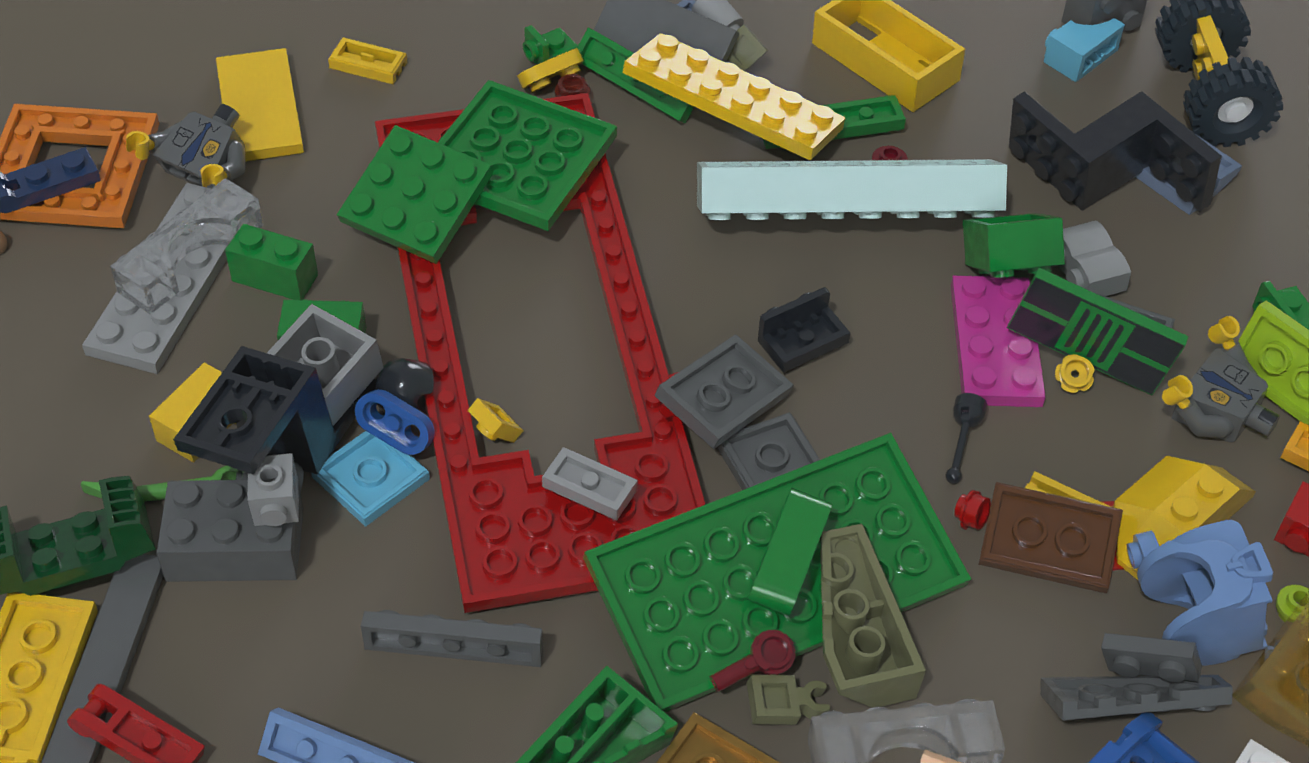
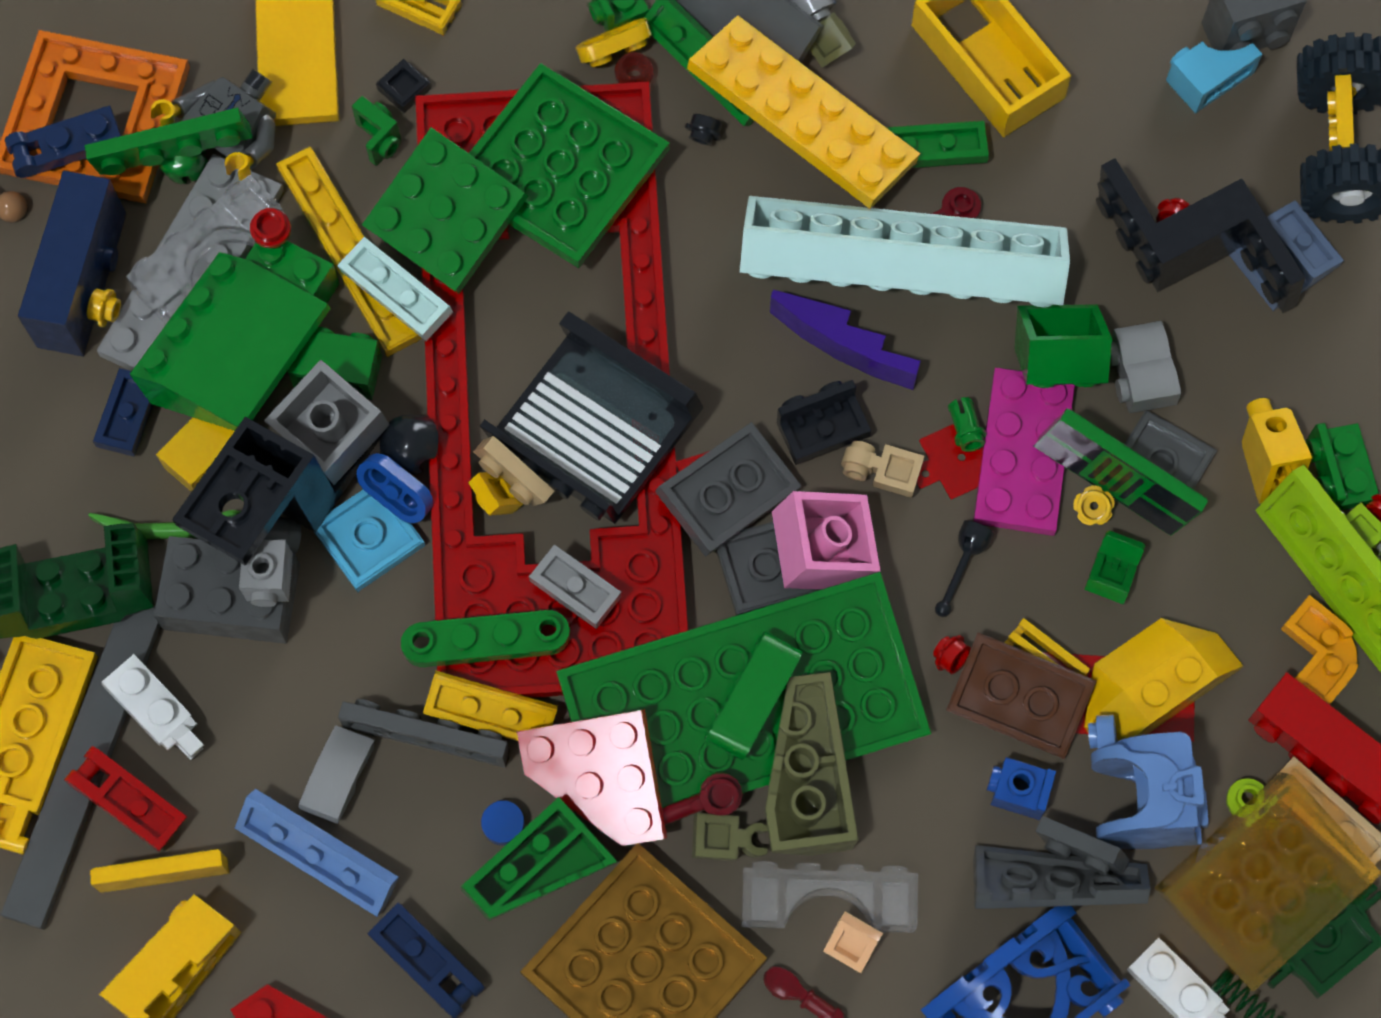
camera: 10 degrees right, 20 degrees up
(55, 271) = (72, 262): none -> dark blue brick
(87, 304) = (103, 307): none -> yellow plate
(115, 392) = (123, 416): none -> dark blue plate
(146, 167) = (173, 147): none -> green plate
(161, 646) = (153, 706): none -> white hinge
(210, 311) = (228, 343): none -> green slope
(249, 213) = (270, 228): none -> red plate
(333, 254) = (338, 236): none -> yellow tile
(341, 147) = (378, 123): none -> green bracket
(360, 120) = (402, 85): none -> black tile
(362, 689) = (336, 774): none -> light grey slope
(375, 261) = (395, 288): none -> light aqua plate
(504, 541) = (485, 638): none -> green plate
(510, 603) = (485, 706): none -> yellow tile
(511, 395) = (500, 461): none -> tan plate
(542, 711) = (502, 822): none -> blue tile
(586, 345) = (597, 420): none -> panel
(644, 125) = (704, 129): none -> black plate
(647, 639) = (600, 772): none -> plate
(793, 262) = (830, 331): none -> dark purple slope
(825, 414) = (824, 539): none -> bright pink brick
(879, 363) = (895, 470): none -> tan plate
(921, 356) = (944, 466): none -> red piece
(941, 326) = (969, 433): none -> green pin
(1074, 618) = (1028, 802): none -> blue brick
(1110, 417) = (1115, 567): none -> green bracket
(1223, 392) = (1239, 551): dark grey torso -> none
(1226, 294) = (1272, 446): none -> yellow torso

